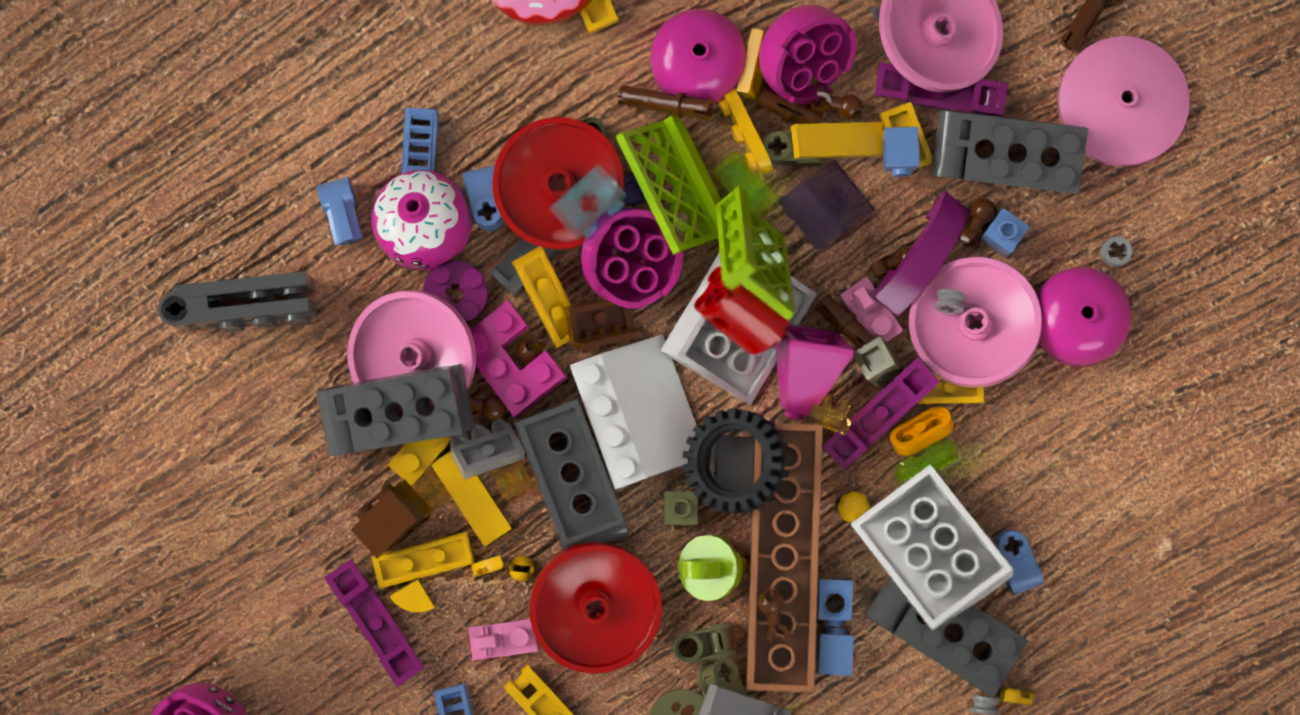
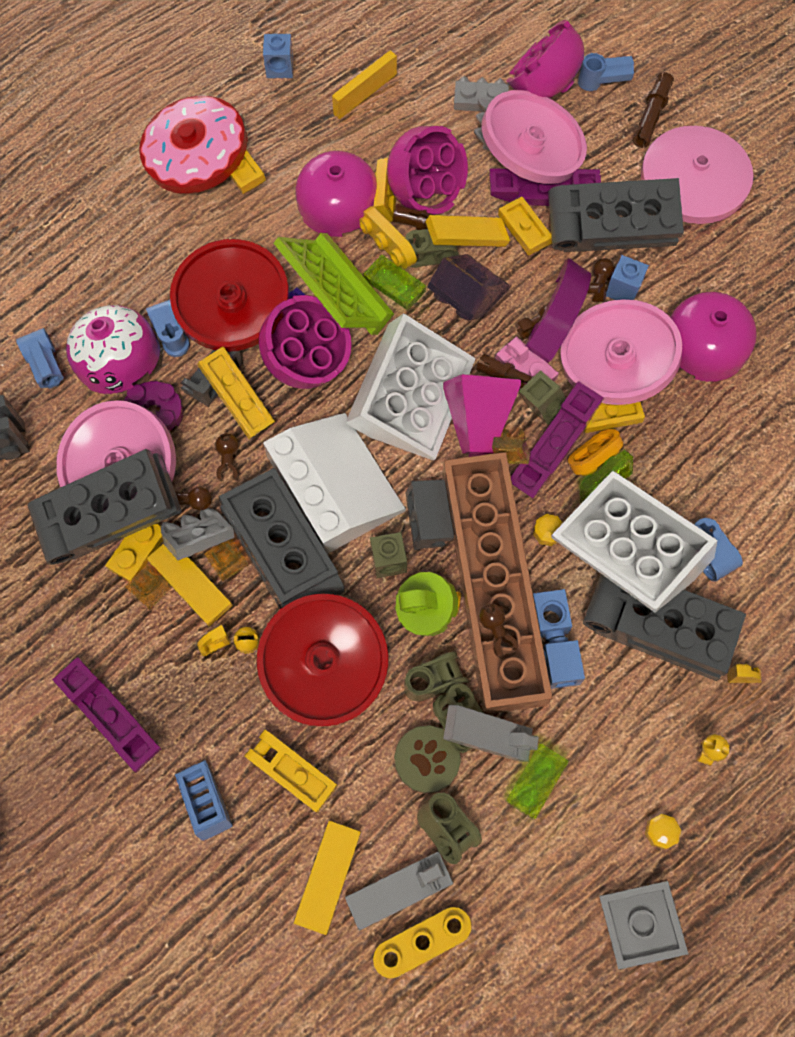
camera: 15 degrees left, 15 degrees down
(390, 517) = (110, 609): reddish brown brick -> none
(413, 598) = (144, 686): yellow tile -> none
(420, 114) = (102, 276): medium blue slope -> none
(423, 560) = (149, 649): yellow tile -> none
(502, 639) = (237, 710): bright pink hinge -> none
(515, 387) = (214, 473): dark pink plate -> none
(594, 184) = (257, 296): clear light blue brick -> none
(599, 324) = (285, 406): reddish brown bracket -> none
(676, 104) = (325, 223): reddish brown pin -> none
(699, 454) = (413, 466): black tyre -> none
(741, 315) = (415, 358): red cylinder -> none
(753, 253) = (400, 302): lime fence -> none
(845, 106) = (464, 209): reddish brown arm -> none
(900, 150) = (523, 226): medium blue brick -> none
(950, 301) = (600, 334): light grey bush -> none
(985, 704) = (718, 687): light grey bush -> none
(1115, 261) = (722, 276): light grey bush -> none

